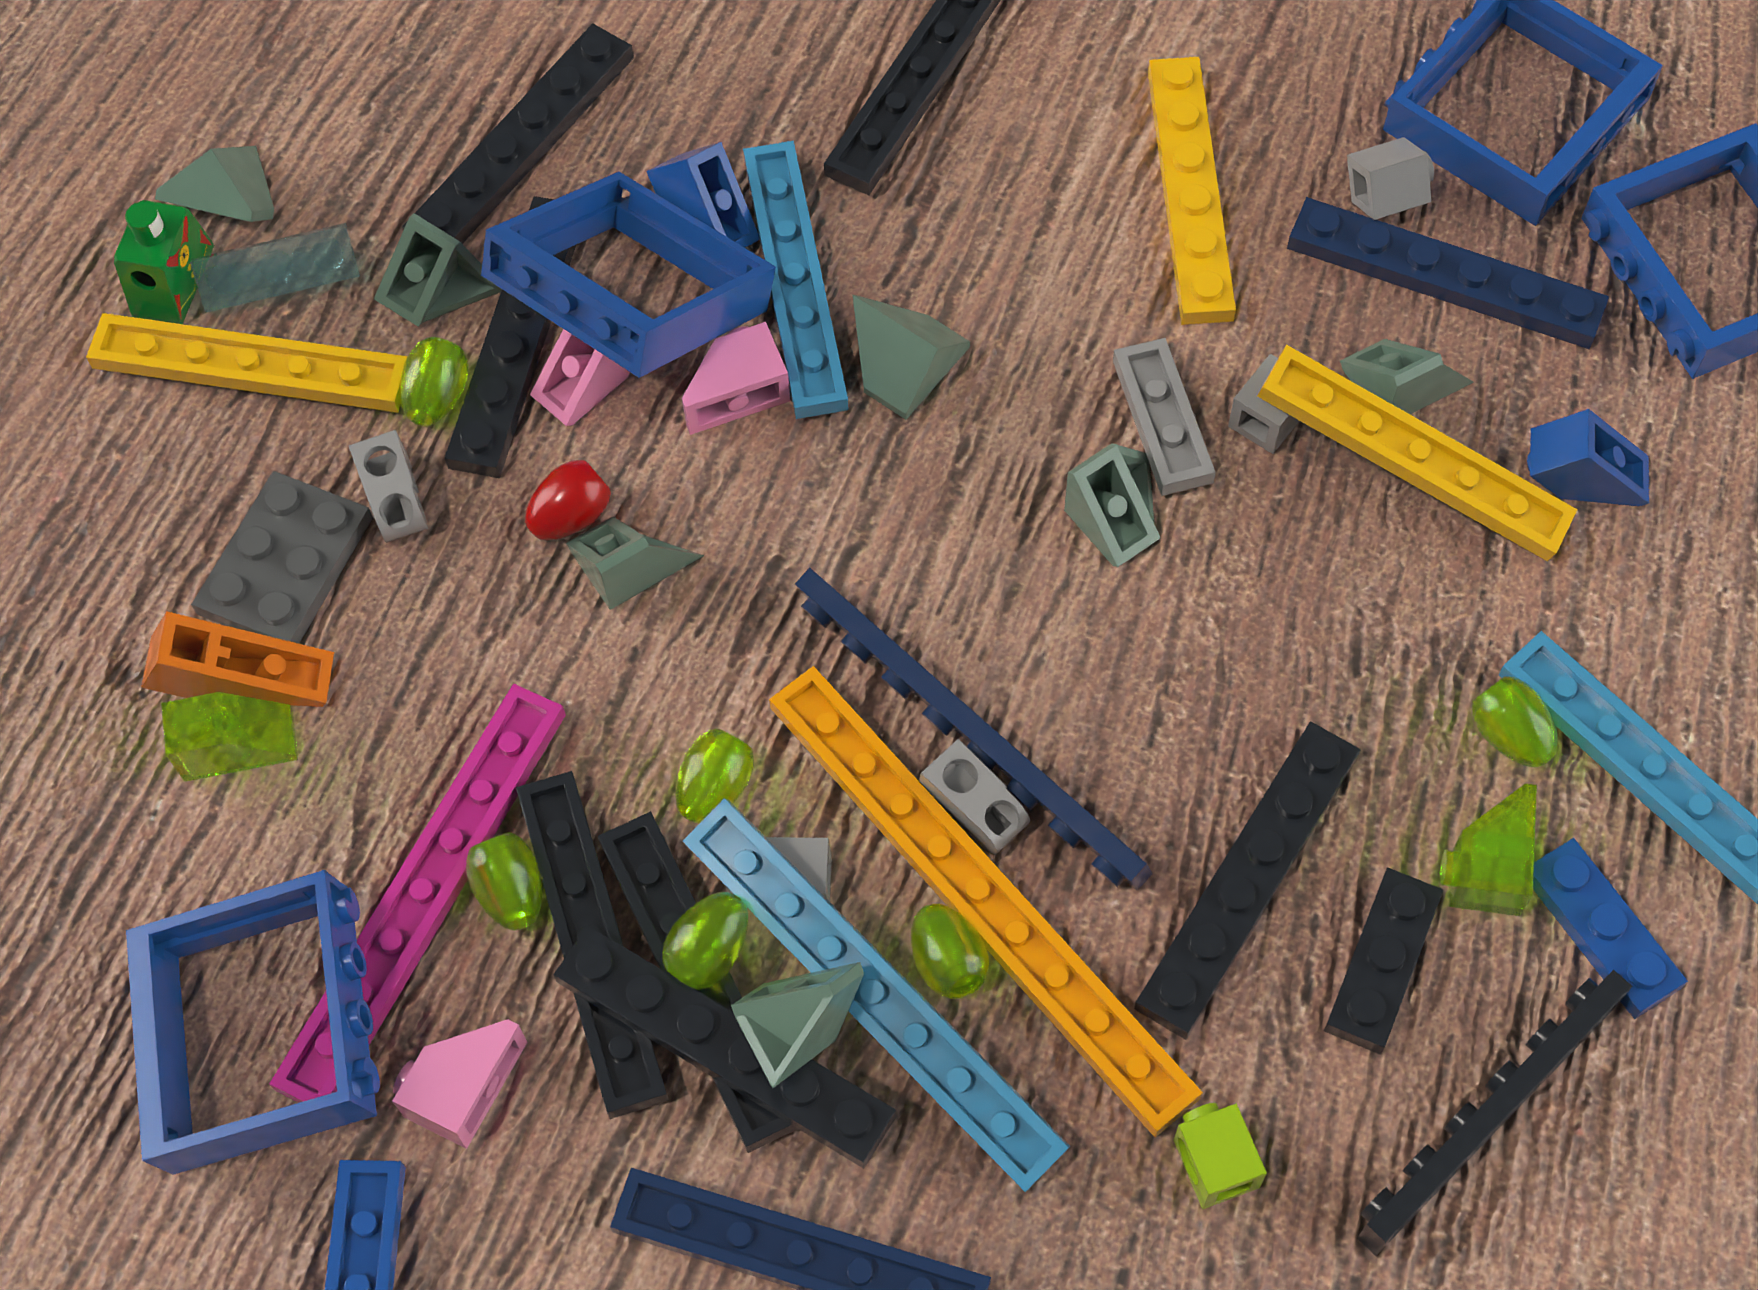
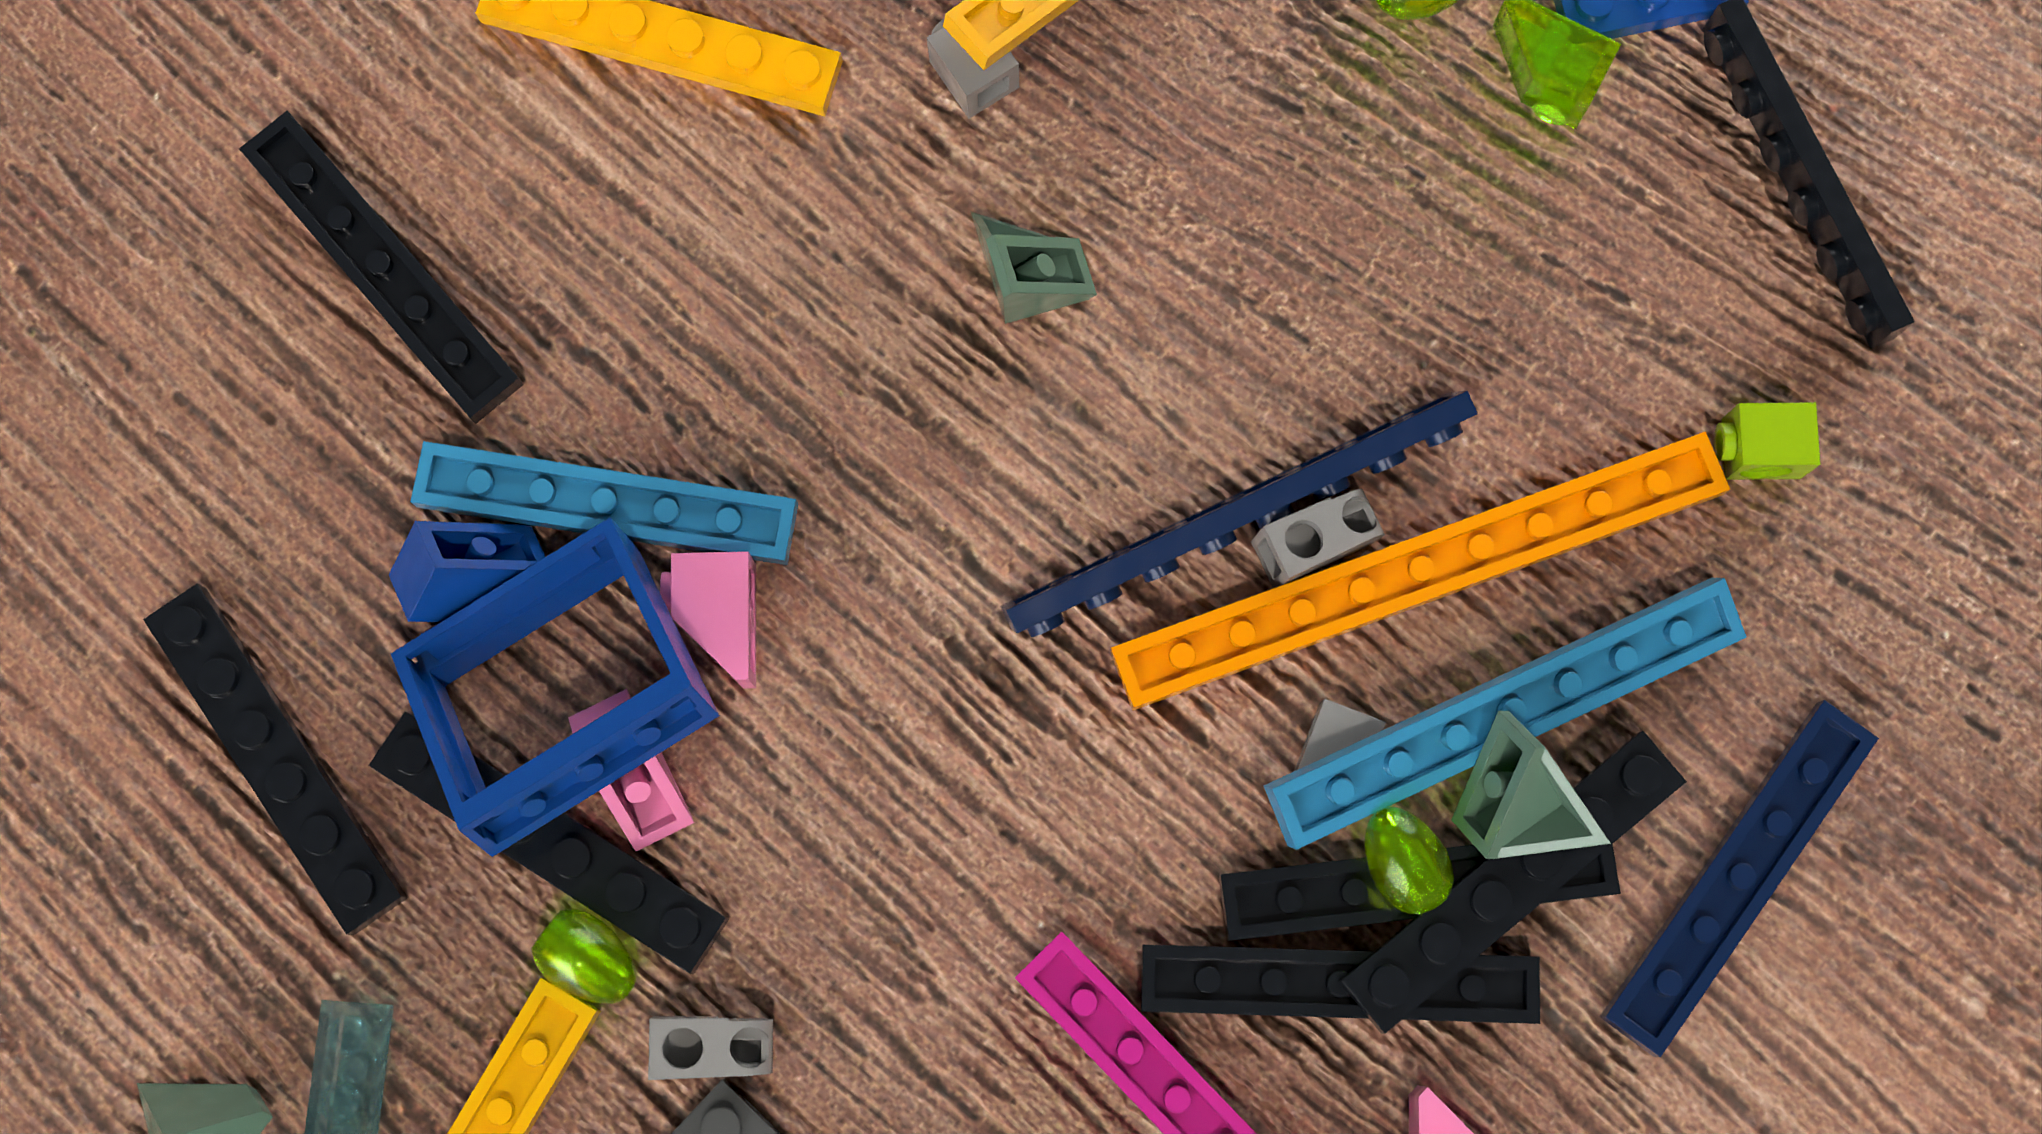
camera: 70 degrees left, 15 degrees up
(431, 274) = (439, 922): sand green slope -> none
(506, 880) = (1245, 1054): clear neon green animal -> none
(566, 501) = (805, 849): red animal -> none
(625, 561) = (890, 809): sand green slope -> none
(712, 770) = (1200, 795): clear neon green animal -> none
(903, 353) = (754, 418): sand green slope -> none
(948, 951) = (1477, 622): clear neon green animal -> none
(1163, 417) = (941, 177): light grey plate -> none
(1246, 881) = (1489, 302): black plate -> none
(1383, 961) = (1615, 210): black plate -> none

